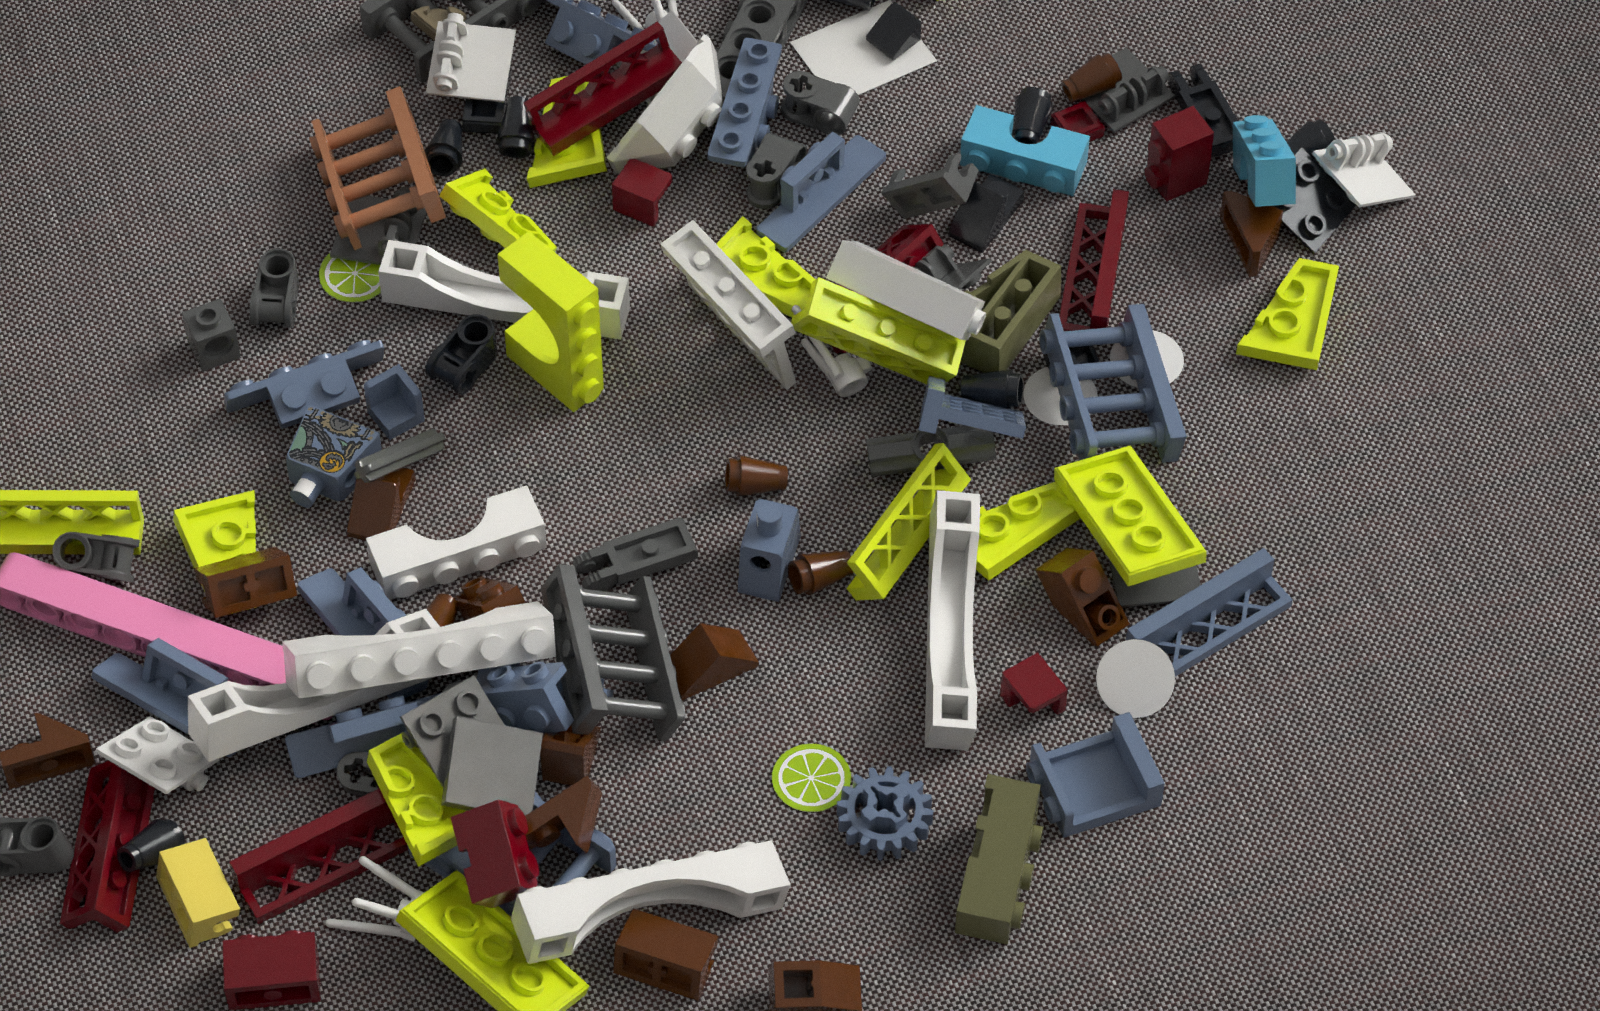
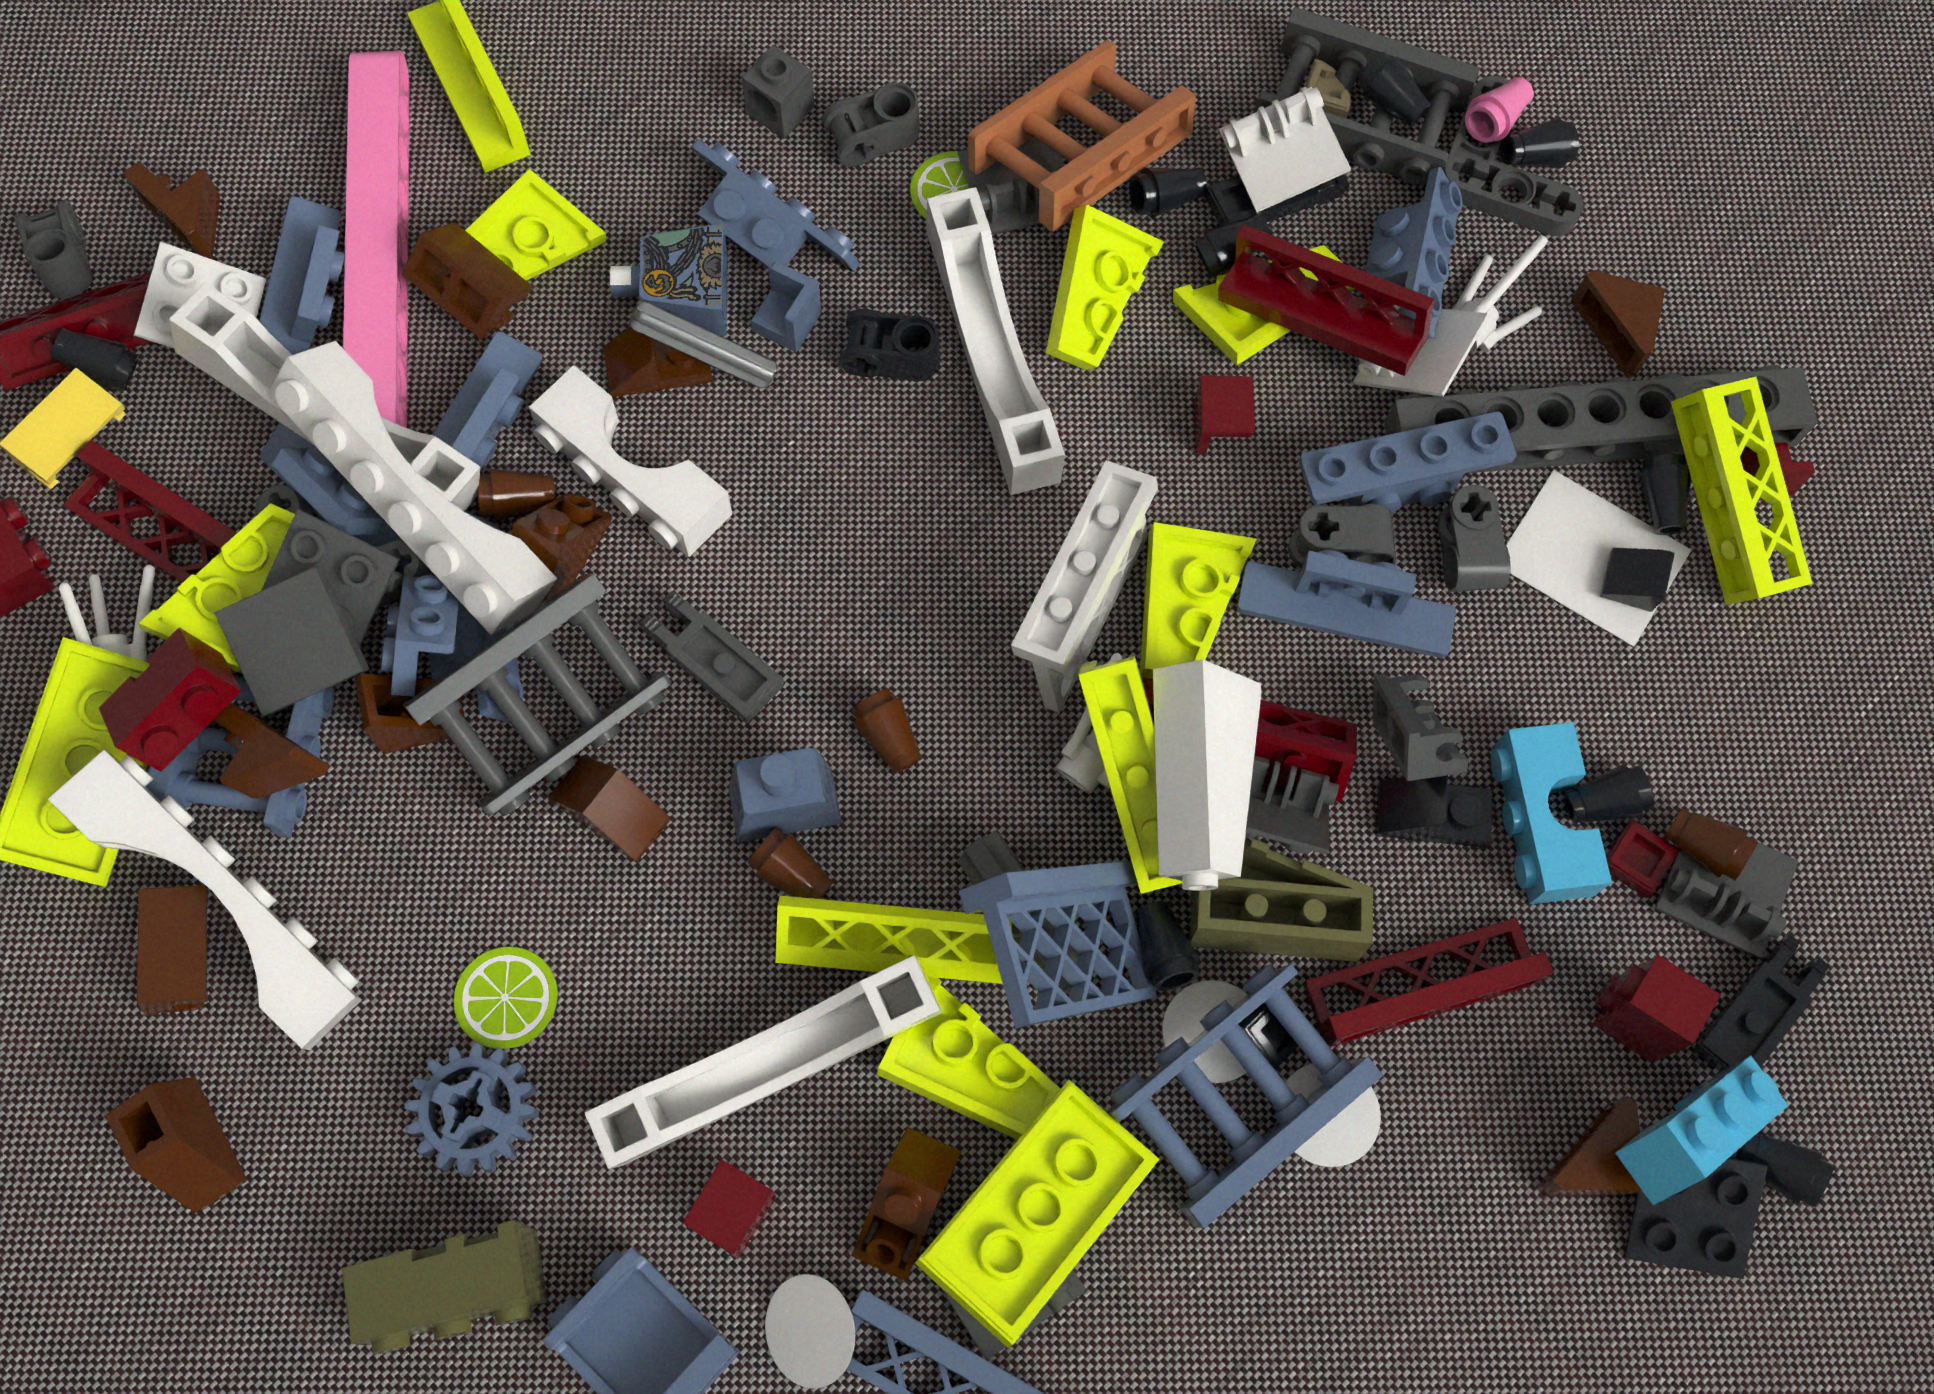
camera: 60 degrees right, 15 degrees up
(104, 555) = (435, 127): dark grey piece -> none
(562, 334) = (931, 398): neon yellow arch -> none
(676, 114) = (1346, 390): white wedge -> none
(1295, 319) = (1497, 1283): neon yellow wing -> none
(1362, 171) = (1789, 1269): white hinge -> none

